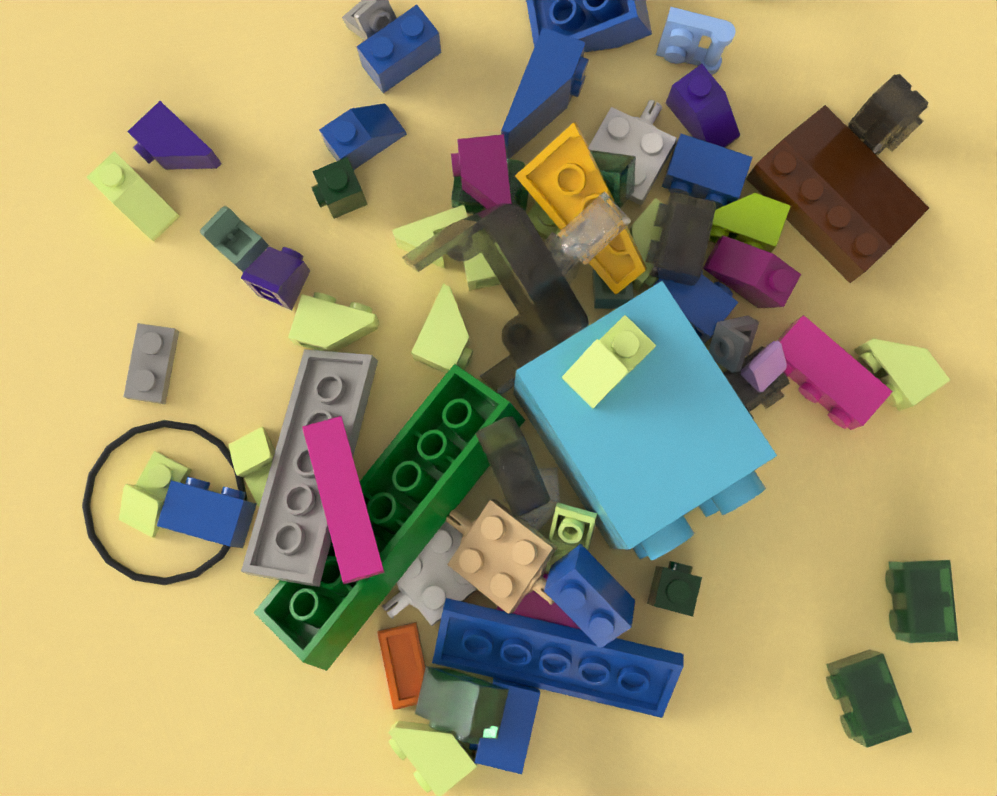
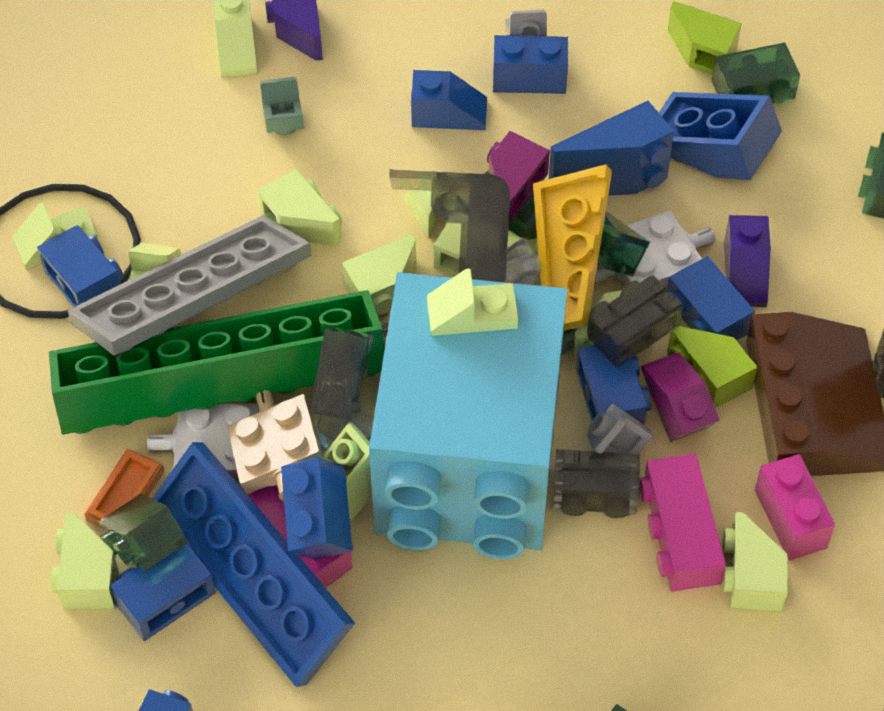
camera: 40 degrees right, 25 degrees down
(151, 363) = (139, 151): light grey plate -> none
(277, 276) = (288, 146): dark purple slope -> none
(338, 188) = (394, 124): dark green brick -> none
(342, 500) = (189, 307): dark pink tile -> none
(593, 229) = (556, 245): clear slope -> none
(675, 588) = (396, 588): dark green brick -> none
(682, 36) = (772, 191): light blue plate -> none
(765, 366) = (623, 459): lavender slope -> none
(895, 301) = (794, 507): none -> dark pink brick

